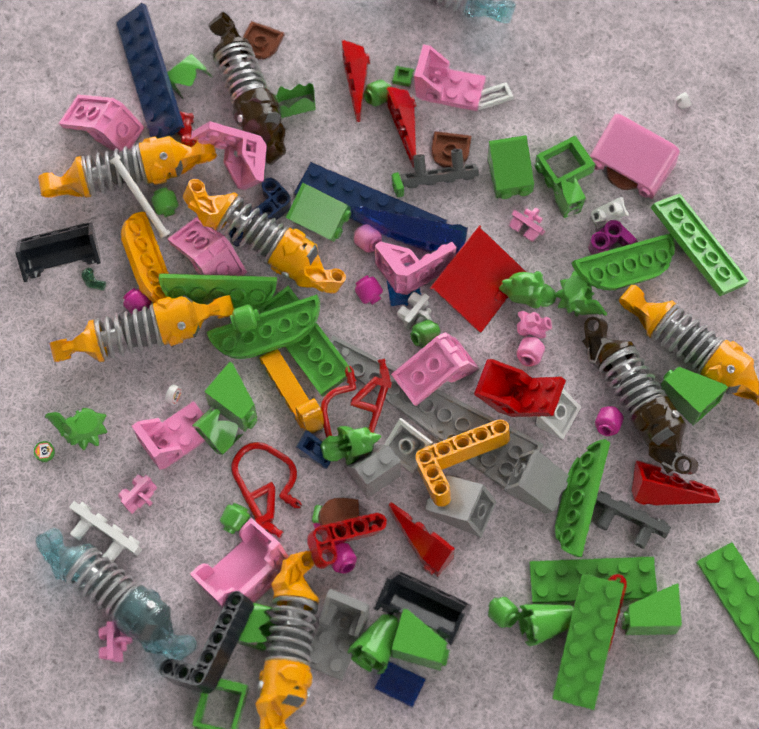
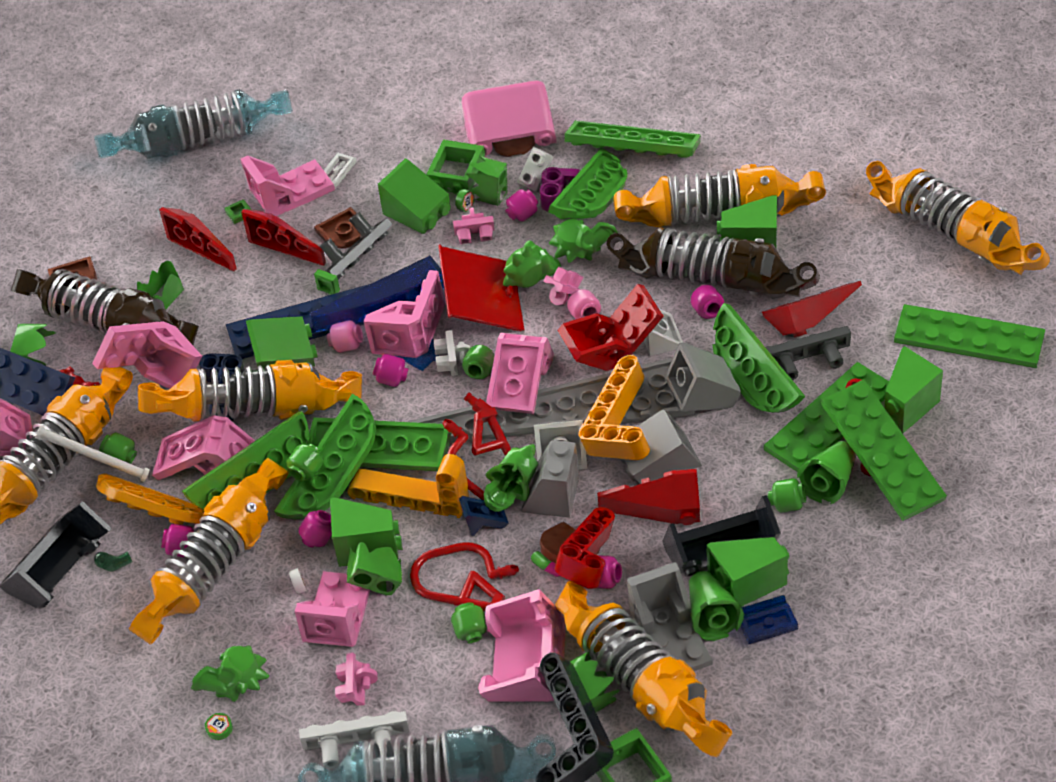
camera: 40 degrees left, 20 degrees down
(212, 367) = (316, 529): none -> dark pink head
(376, 93) = (231, 234): bright green head -> none
(544, 195) = (464, 199): none -> bright green tile
(574, 233) = (521, 205): none -> dark pink head
(683, 100) = (503, 62): white hinge -> none

